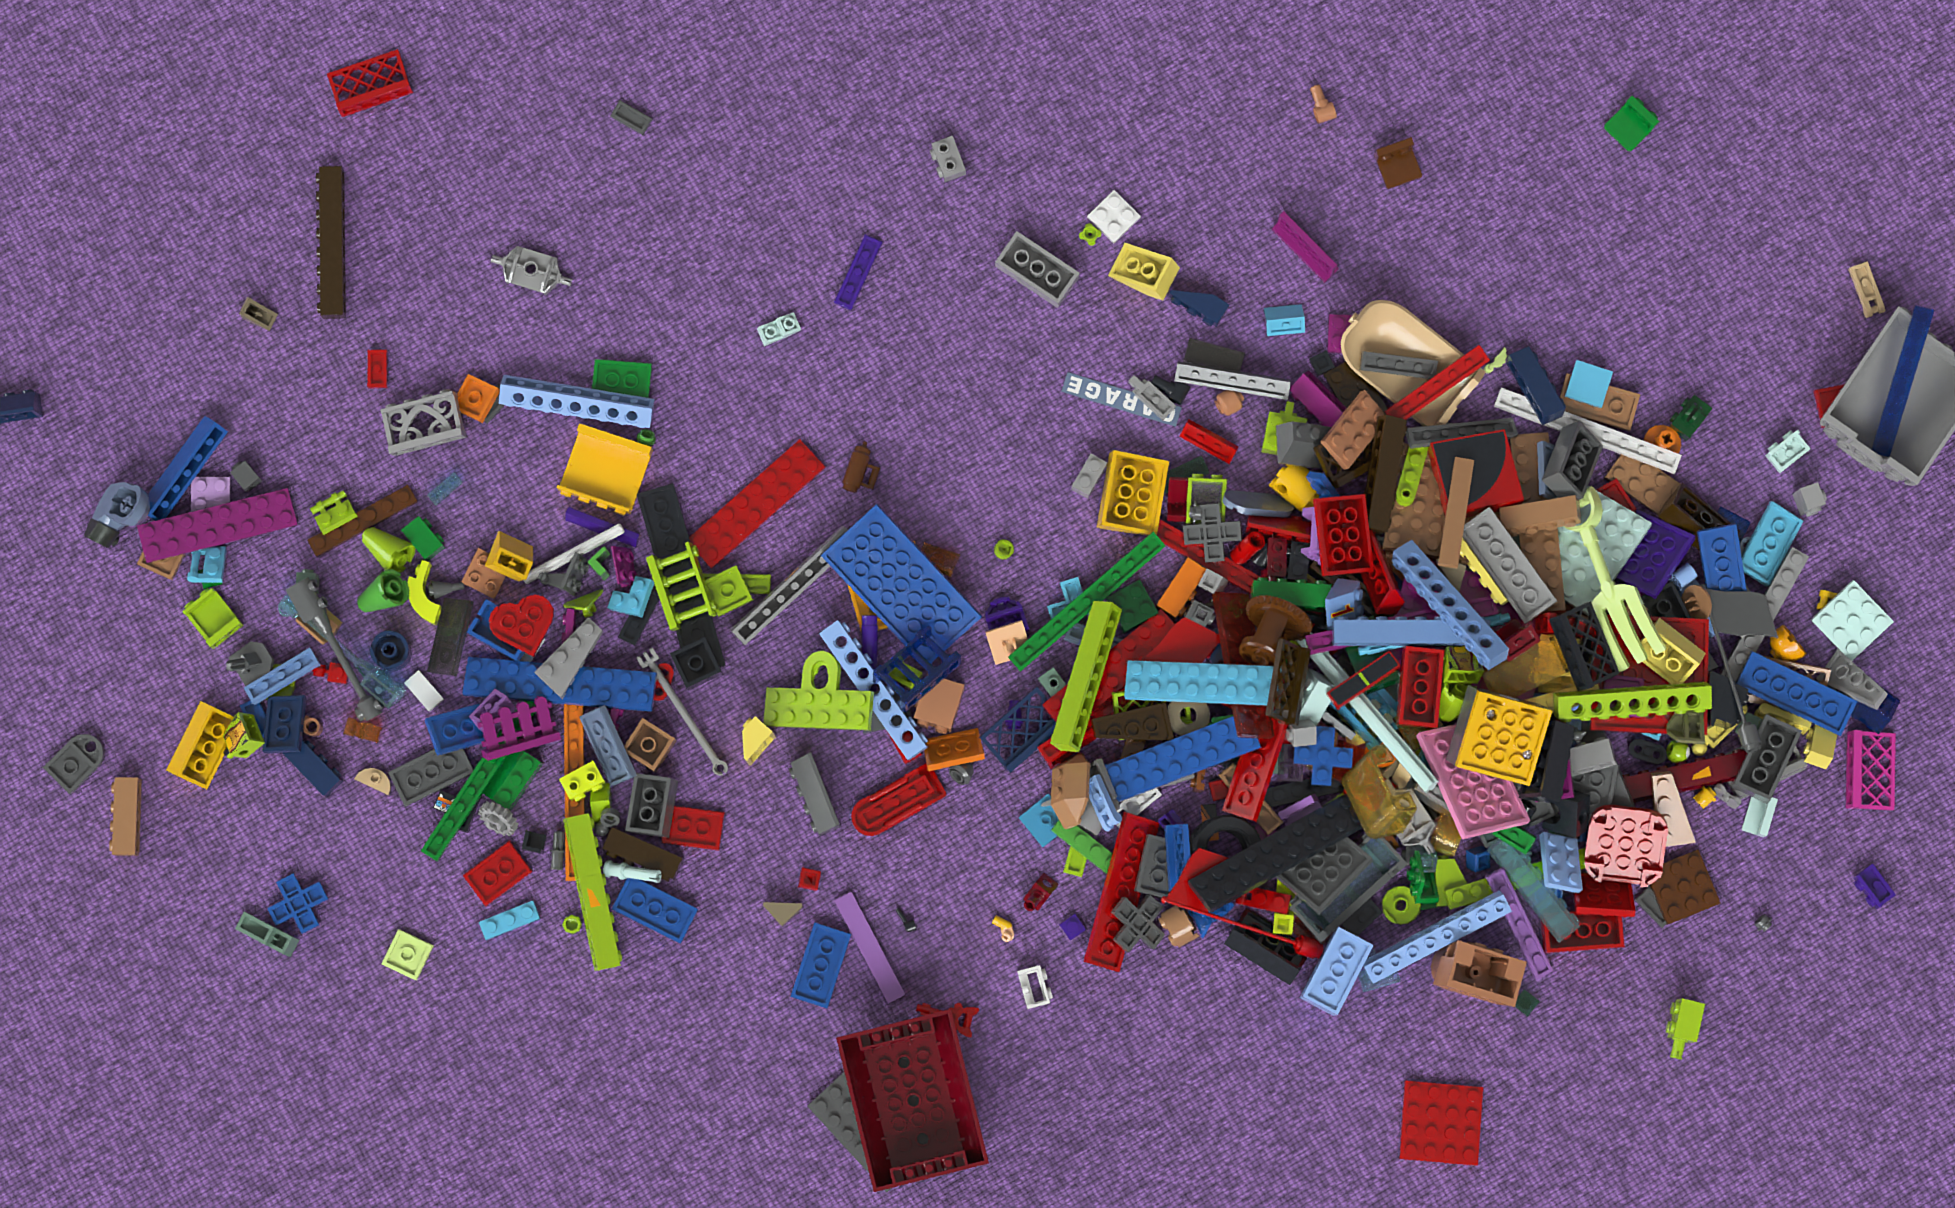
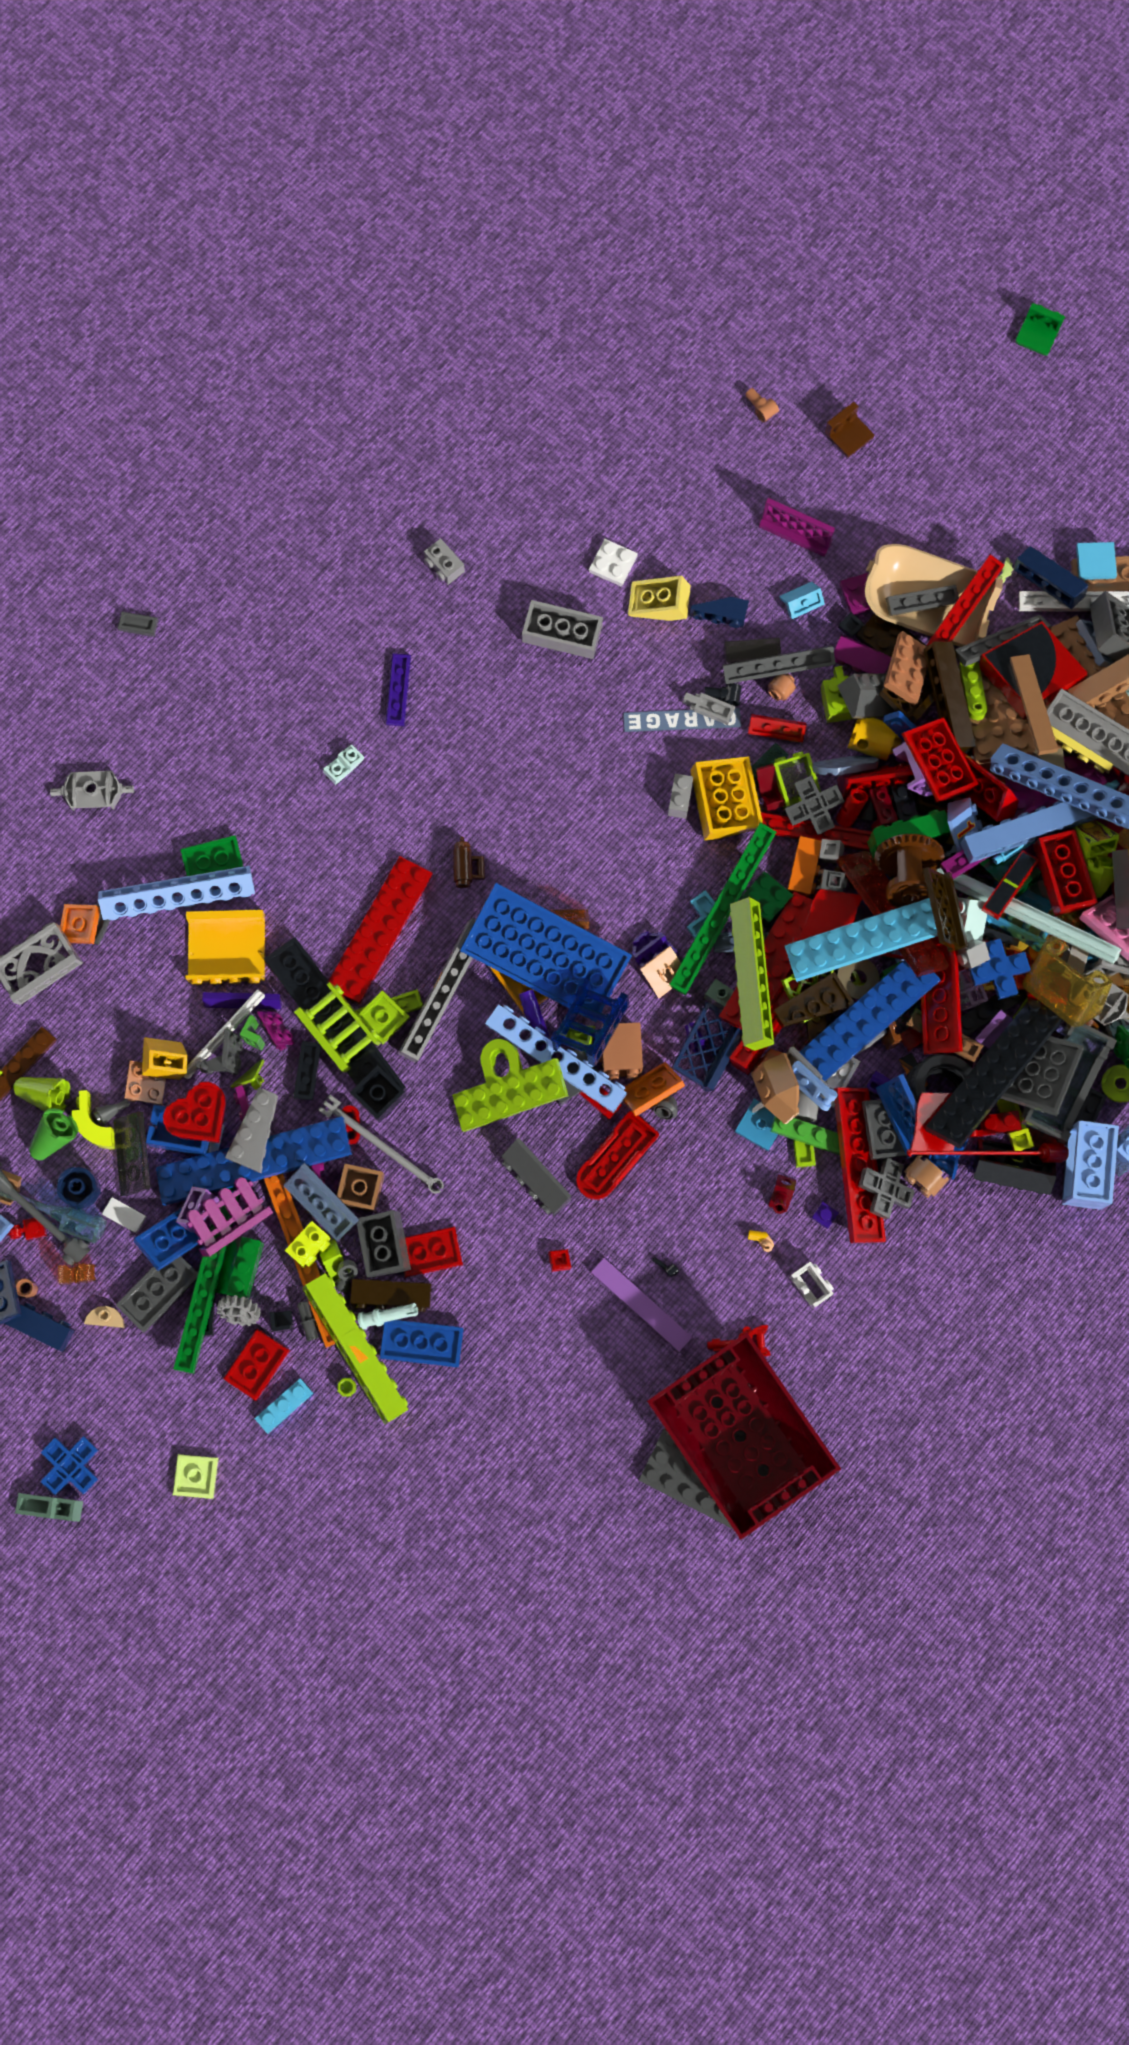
camera: 25 degrees left, 5 degrees down
(423, 538) = (74, 1071): green brick -> none
(443, 801) = (179, 1314): tile -> none
(444, 489) = (78, 1018): clear light blue piece -> none
(635, 601) = (298, 1058): medium azure plate -> none
(646, 437) = (254, 903): bright green plate -> none
(755, 739) = (461, 1143): light yellow slope -> none
(783, 911) = (545, 1300): dark tan slope -> none
(820, 965) = (601, 1339): blue plate -> none
(1003, 549) = (626, 889): lime tile -> none
(1089, 228) = (598, 580): lime plate -> none
(1195, 512) = (792, 792): dark grey plate -> none

